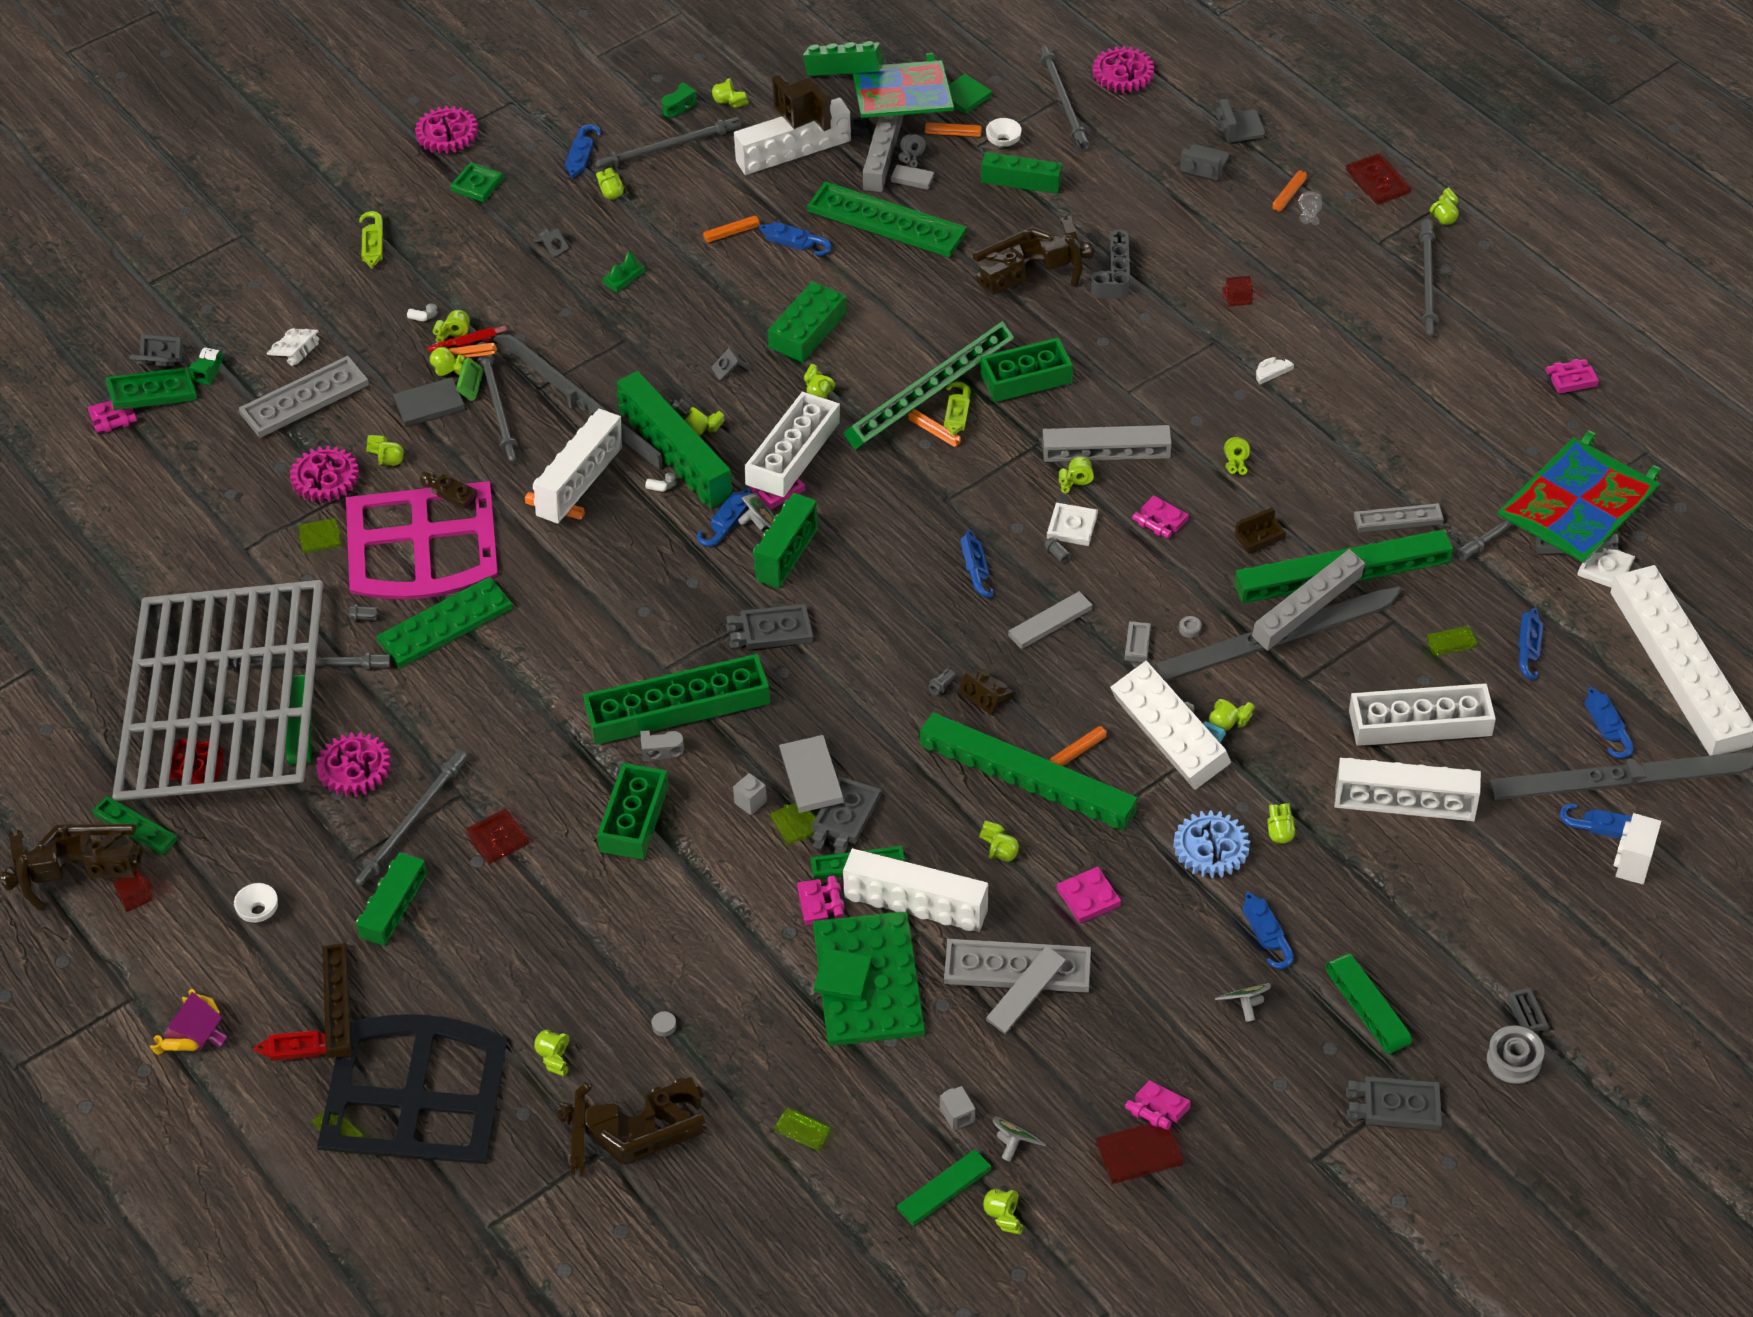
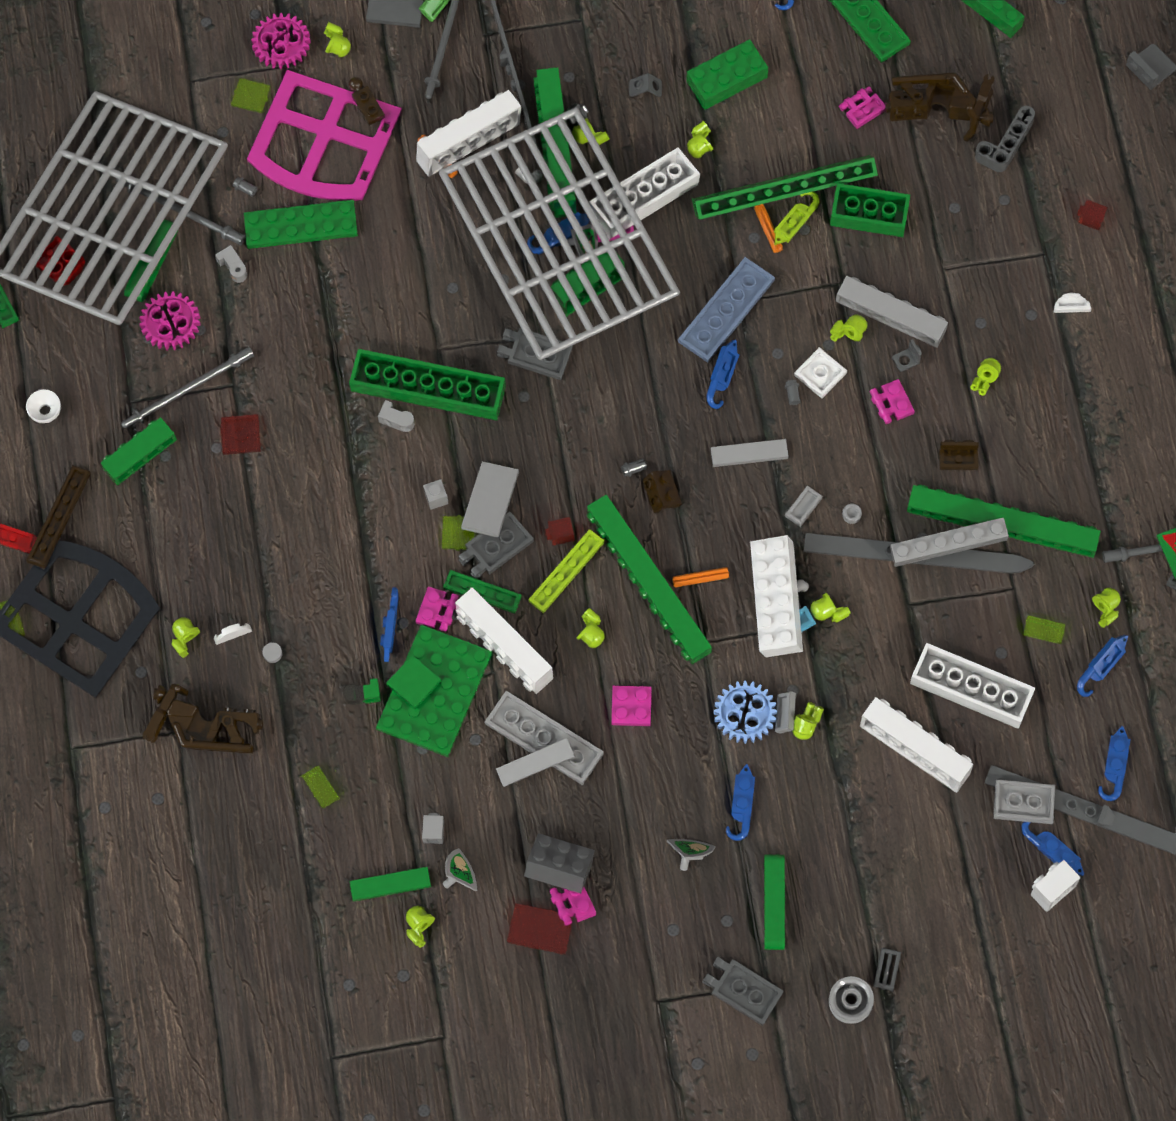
camera: 30 degrees right, 20 degrees up
(392, 684) = (233, 262): none -> light grey leg
(605, 1024) = (232, 632): none -> white tile
(633, 811) = (343, 466): green brick -> none
(764, 519) = (508, 217): none -> light grey bar
(779, 935) = (389, 624): none -> blue plate
(792, 1015) = (362, 694): none -> leg
(905, 769) = (560, 531): none -> clear red brick
(935, 803) = (566, 571): none -> lime plate
(941, 510) = (726, 309): none -> sand blue plate
(962, 299) = (866, 110): none -> dark pink plate
(1119, 1070) = (559, 863): none -> dark grey brick
(1152, 469) = (913, 353): none -> dark grey bracket
(1254, 825) = (785, 712): none -> light grey tile
(1398, 518) = (1079, 496): light grey tile -> none
(1494, 590) = (1107, 602): none -> lime piece
(1547, 794) = (1024, 801): none -> light grey tile

